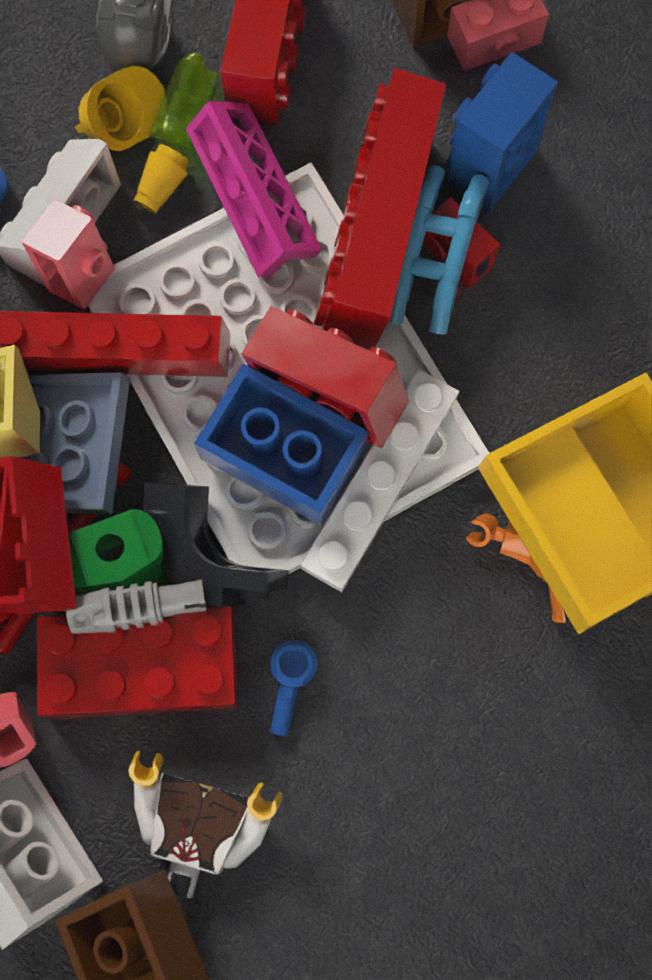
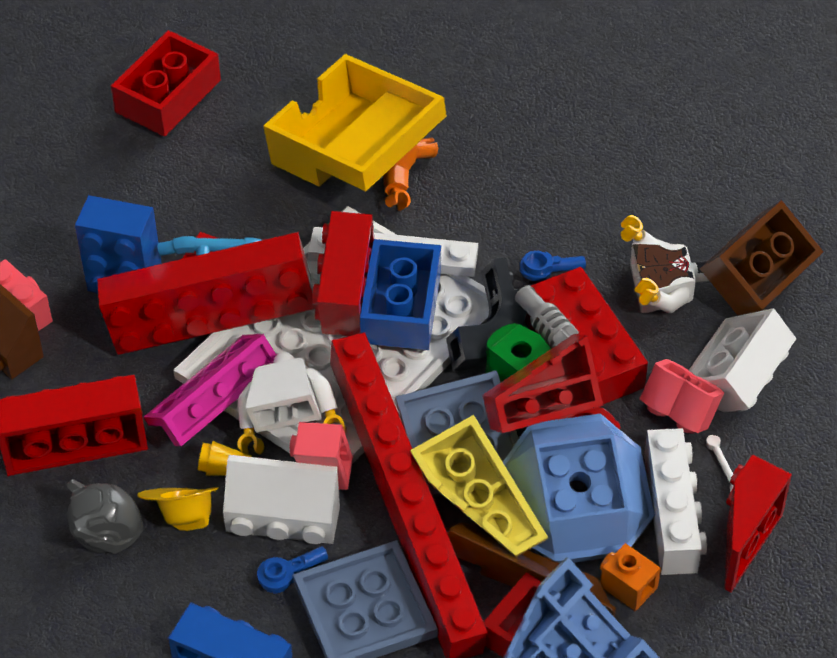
camera: 115 degrees left, 25 degrees down
(184, 99) = (151, 473): clear neon green hinge -> none
(186, 256) = (282, 397): none -> white torso

